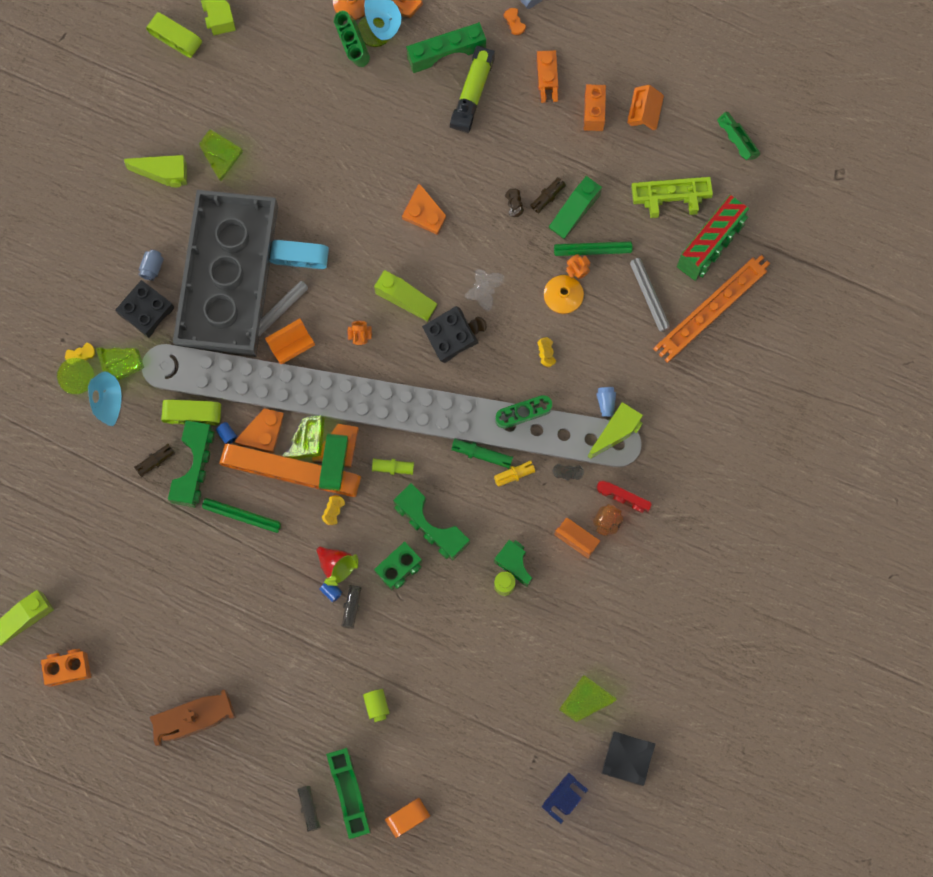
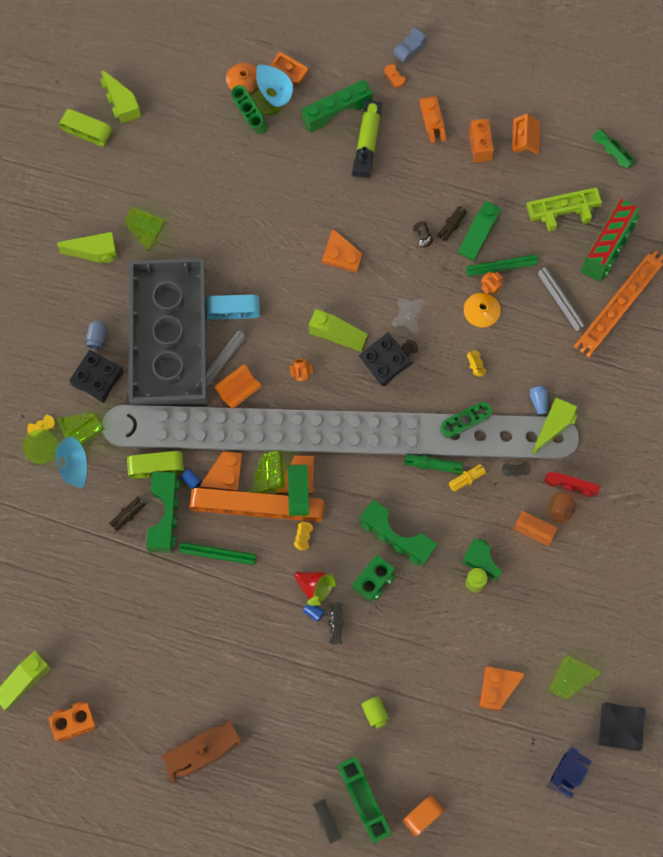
camera: 10 degrees left, 5 degrees down
(392, 466) = (352, 487): lime pin -> none
(508, 698) = (497, 687): none -> orange wing

